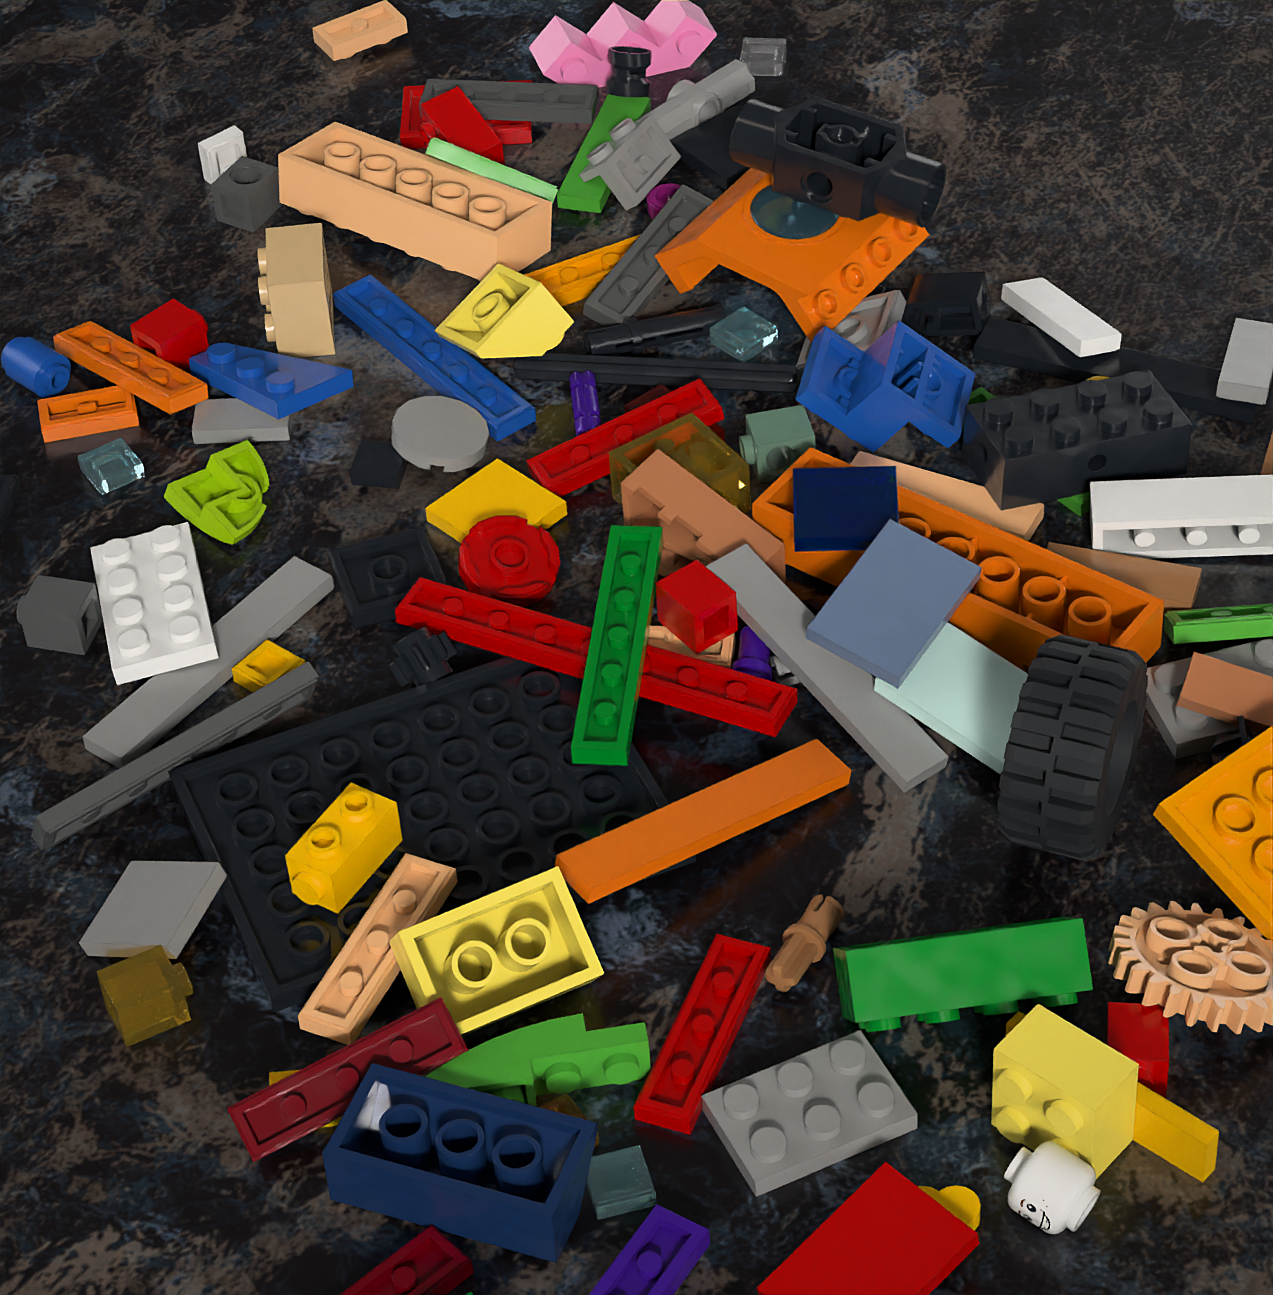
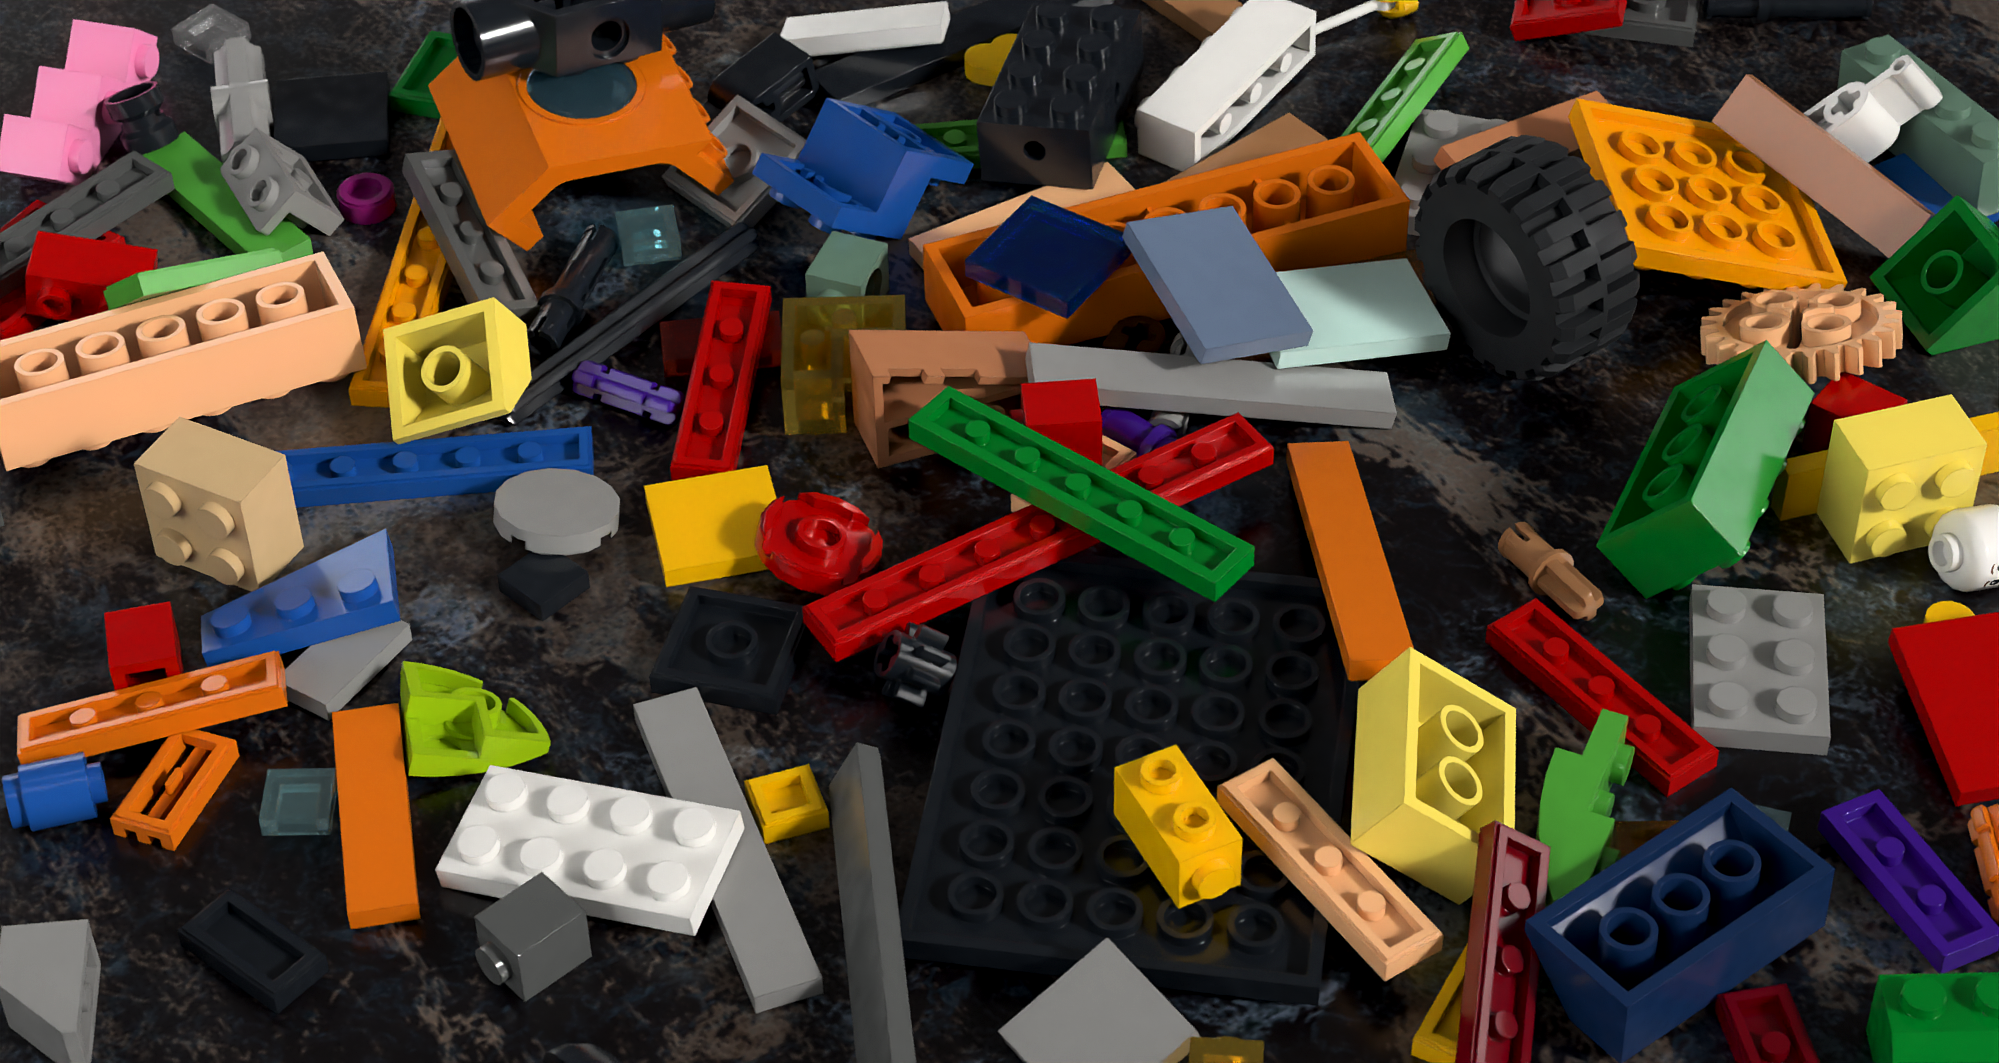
camera: 60 degrees left, 0 degrees up
(117, 504) = (375, 816): none -> orange tile

